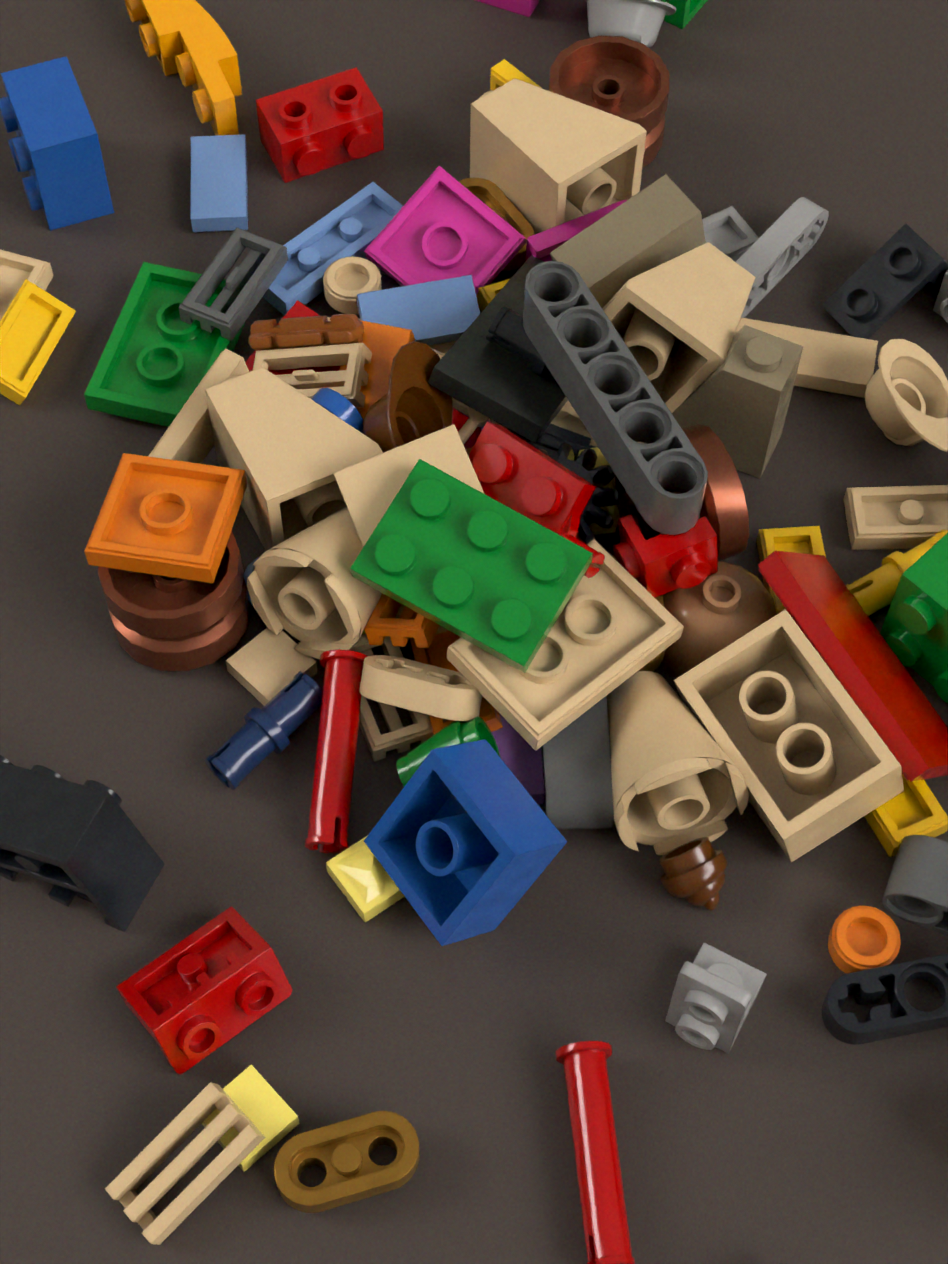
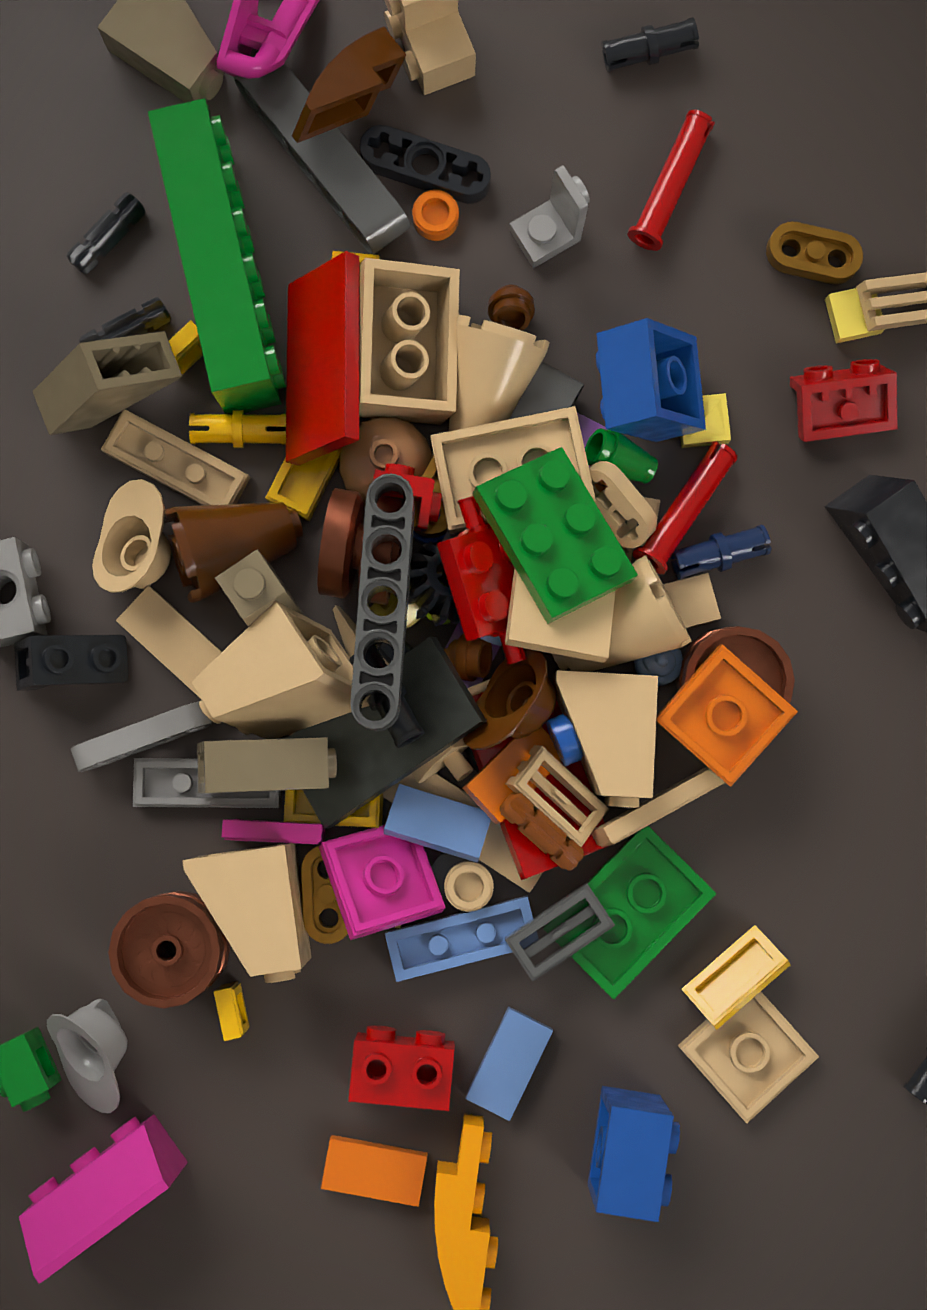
camera: 150 degrees left, 25 degrees up
(297, 56) = (374, 1170): none -> orange tile
(826, 444) = (218, 536): none -> reddish brown cone

